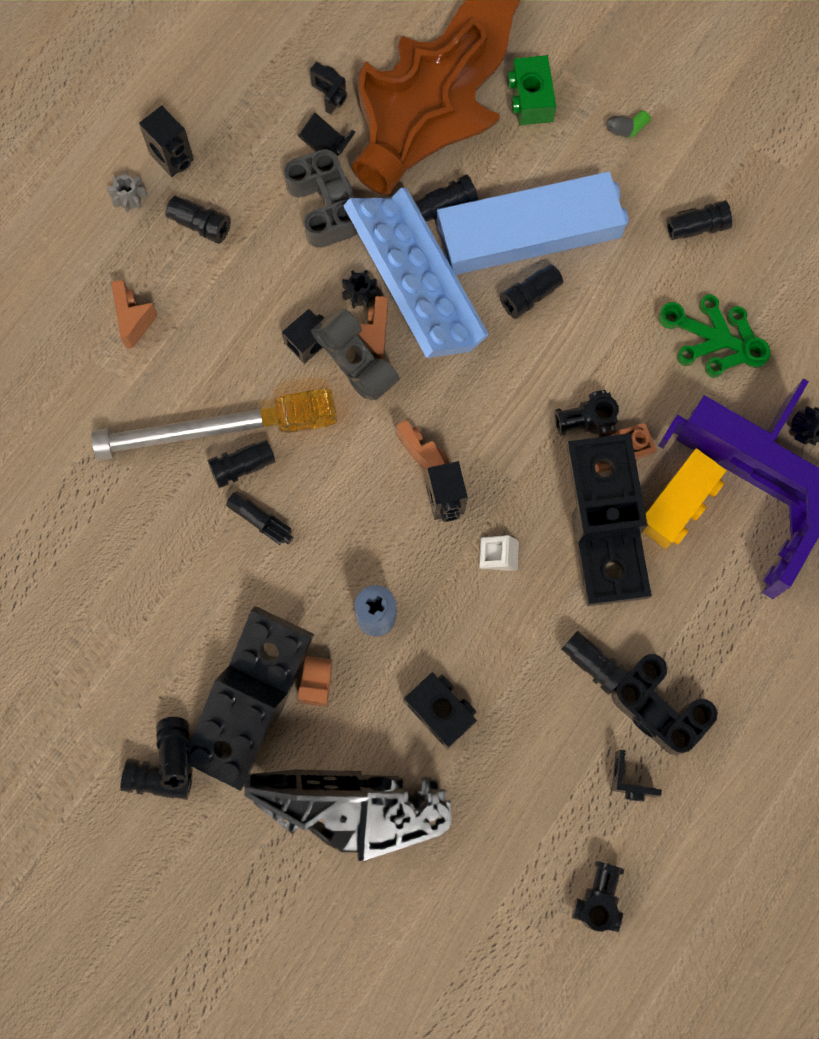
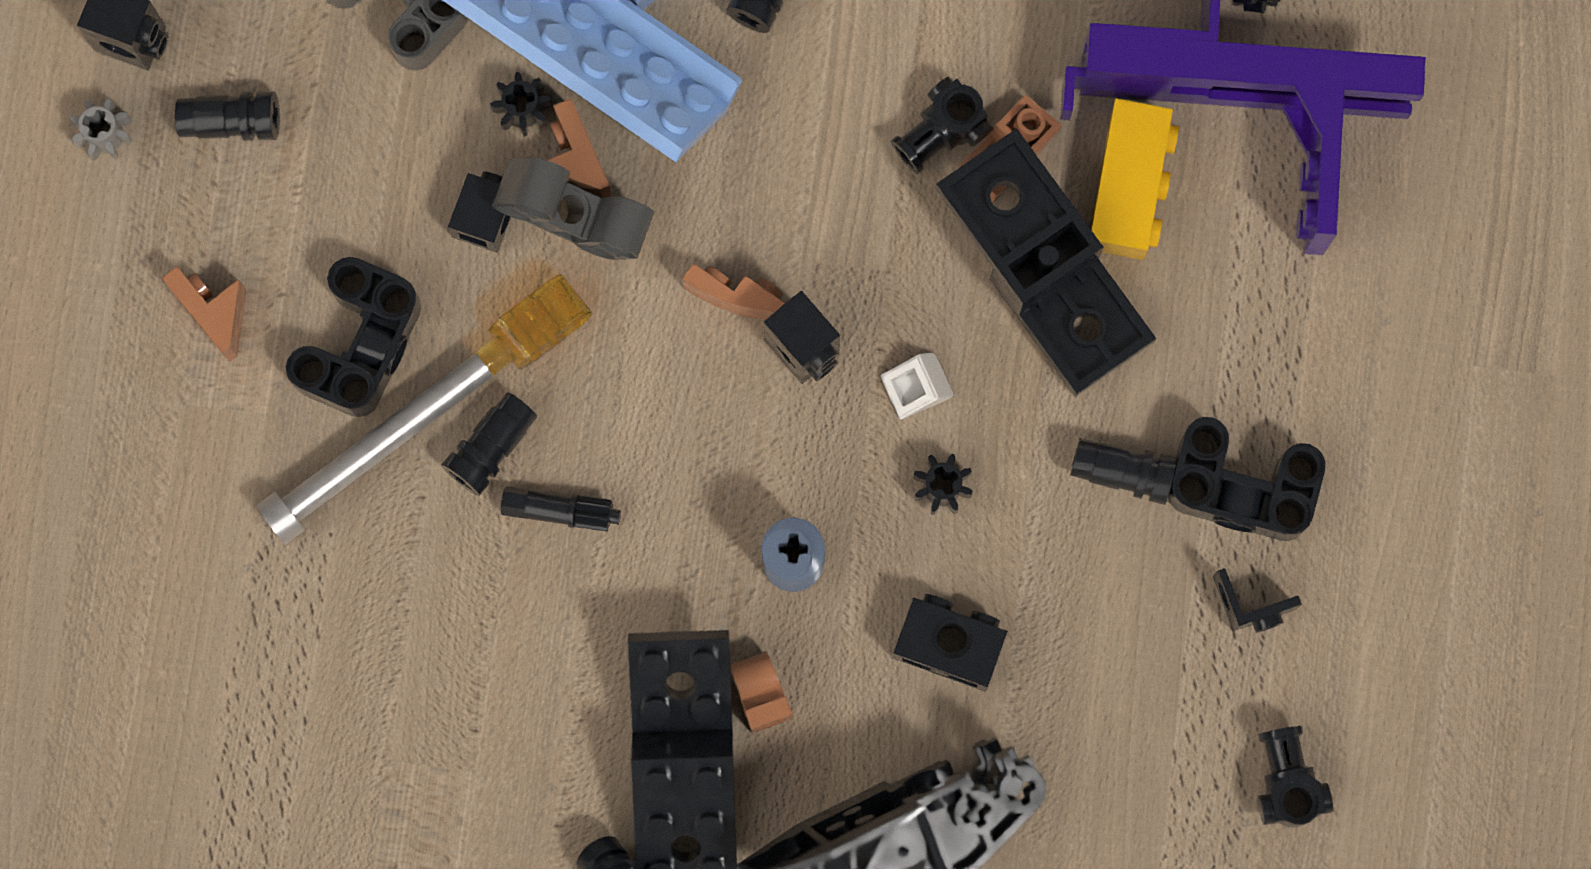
camera: 25 degrees left, 5 degrees up
(207, 378) = (375, 348): none -> black beam
(491, 611) = (947, 472): none -> black gear

